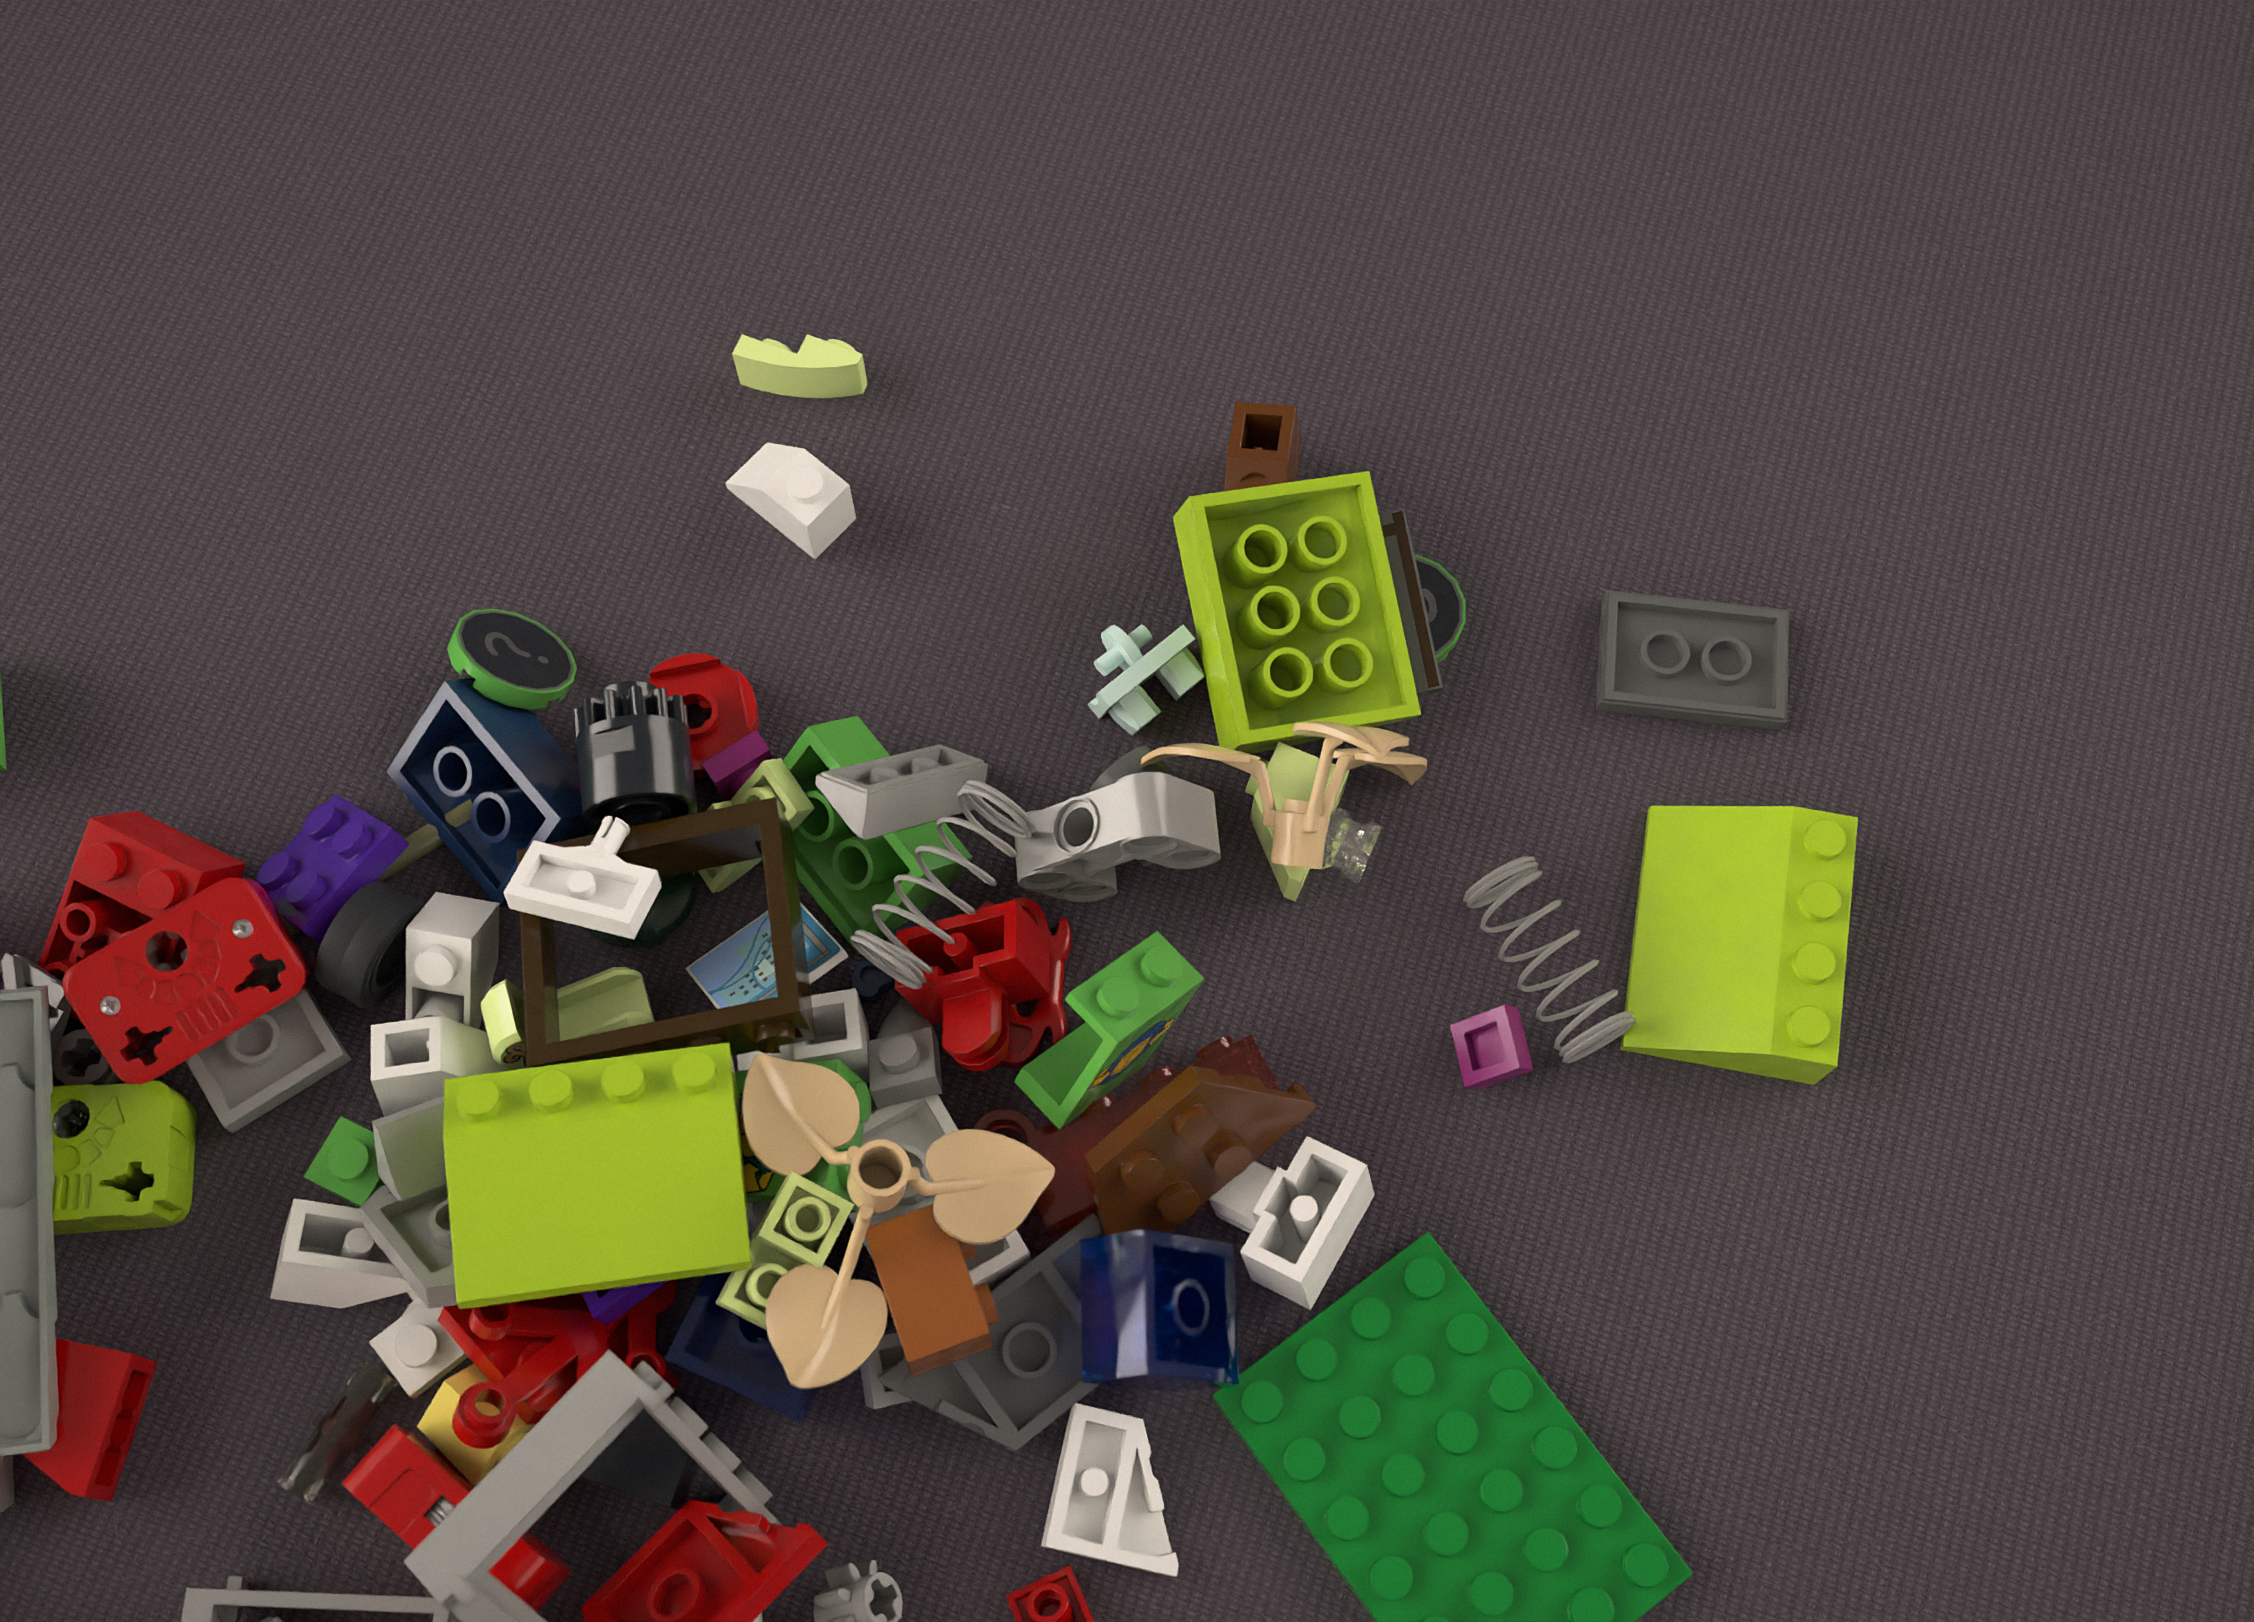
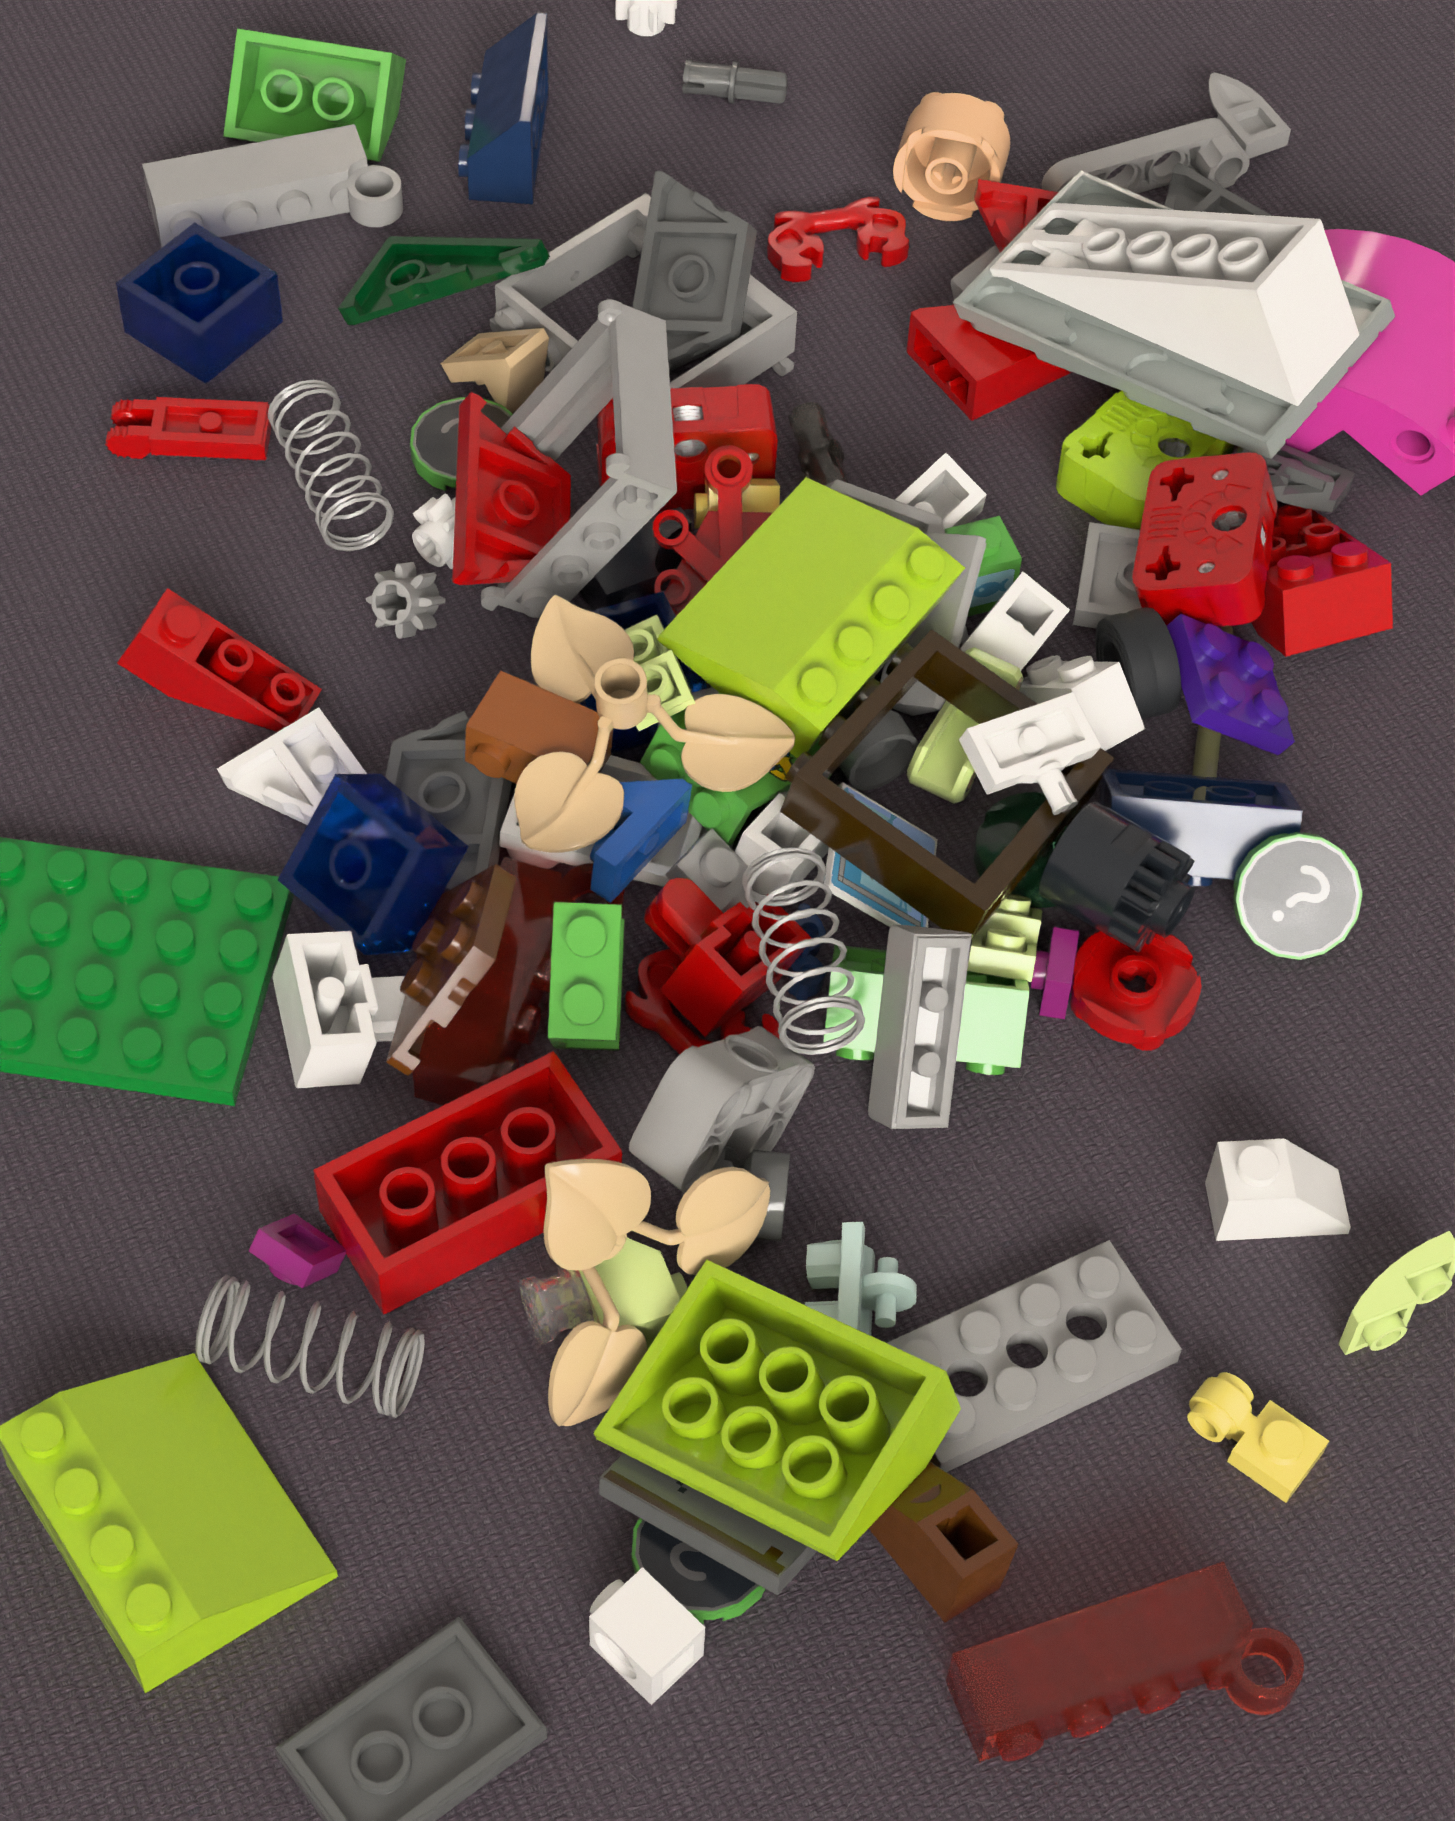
camera: 135 degrees right, 15 degrees down
(922, 1124) = (648, 820): none -> blue slope
(987, 378) = (1270, 1448): none -> light yellow plate
(1056, 514) = (1036, 1314): none -> light grey plate
(1229, 330) = (1116, 1659): none -> clear red hinge
(1332, 977) = (458, 1181): none -> red brick
(1497, 583) = (645, 1634): none -> white brick

